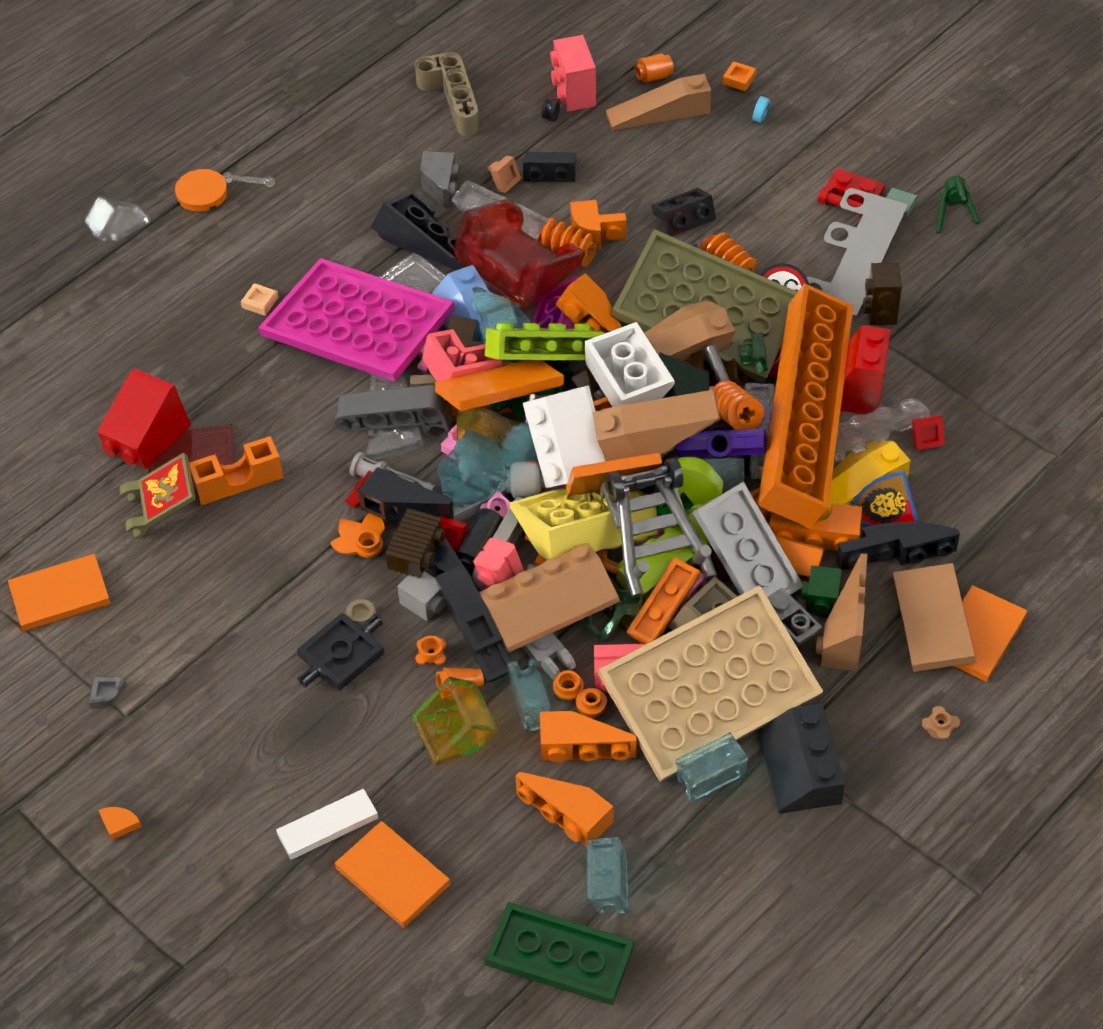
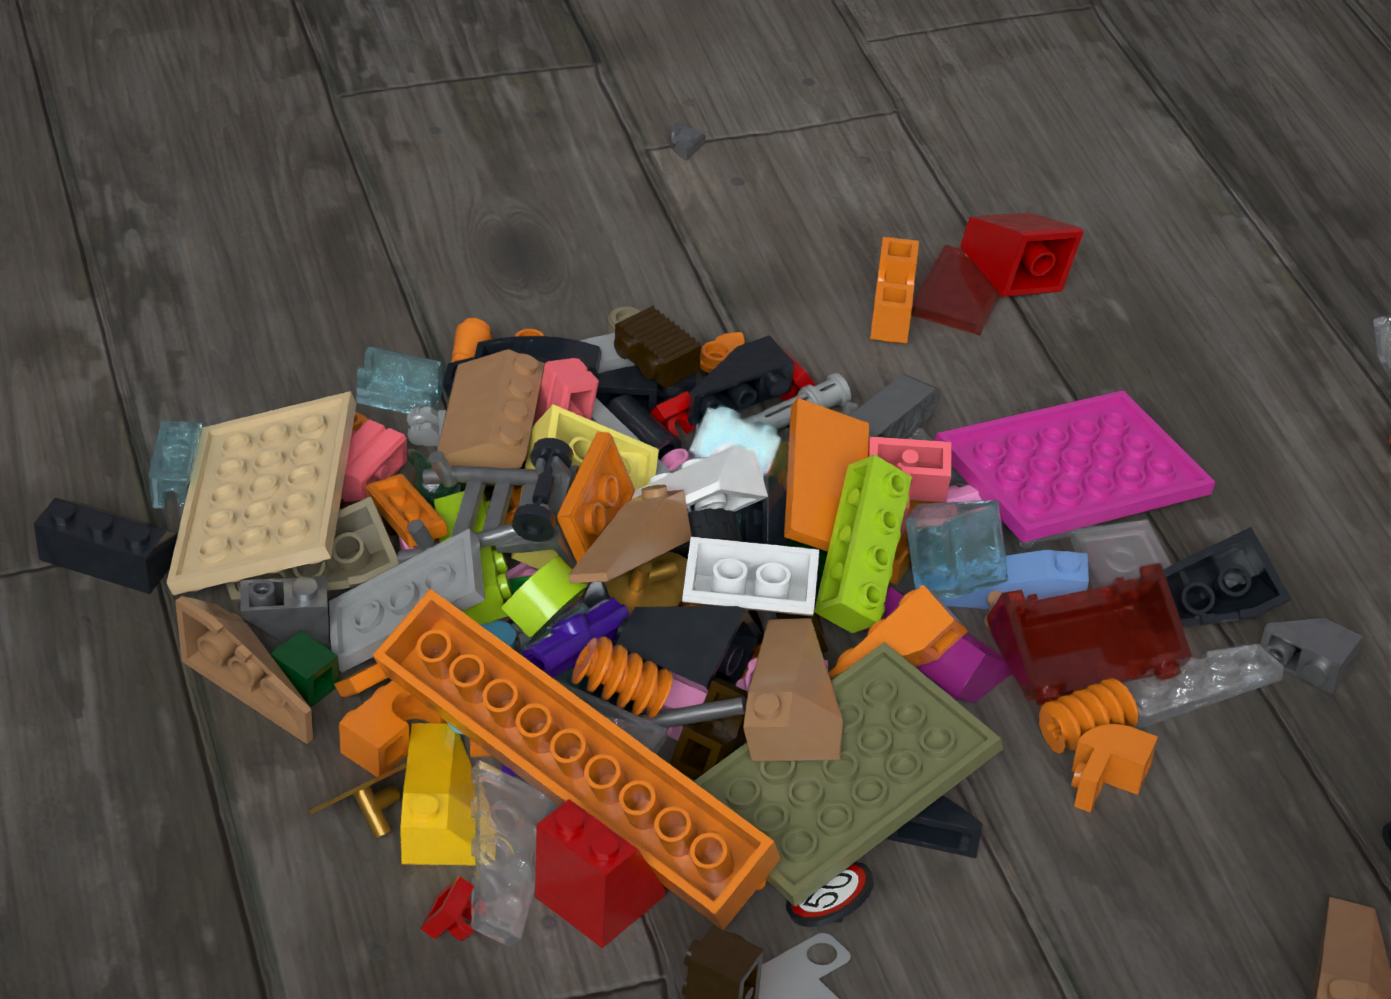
camera: 115 degrees right, 10 degrees down
(58, 592) = (837, 150): orange tile -> none
(119, 821) = (525, 100): orange tile -> none
(160, 492) = (882, 223): flag -> none
(259, 299) = (1184, 422): light nougat tile -> none
(327, 824) = (393, 212): white tile -> none
(340, 651) = (585, 285): black plate -> none
(392, 874) = (297, 228): orange tile -> none
(454, 721) = (417, 321): clear yellow slope -> none
(505, 173) = (1278, 717): nougat tile -> none
(549, 166) = (1273, 782): black bracket -> none
(560, 953) = (97, 285): dark green plate -> none
(567, 678) = (389, 415): orange plate -> none
(572, 806) = (243, 351): orange slope -> none
(578, 737) = (318, 377): orange slope -> none
(607, 874) = (136, 342): clear light blue hinge -> none
(685, 211) = (1080, 877): black bracket -> none
(727, 249) = (934, 865): orange piece -> none
(754, 352) = (713, 771): clear green tile -> none
(907, 540) = (301, 779): black slope -> none
(933, 617) = (170, 744): medium nougat tile -> none
(937, 730) = (36, 679): medium nougat plate -> none
(991, 628) = (113, 788): orange tile -> none

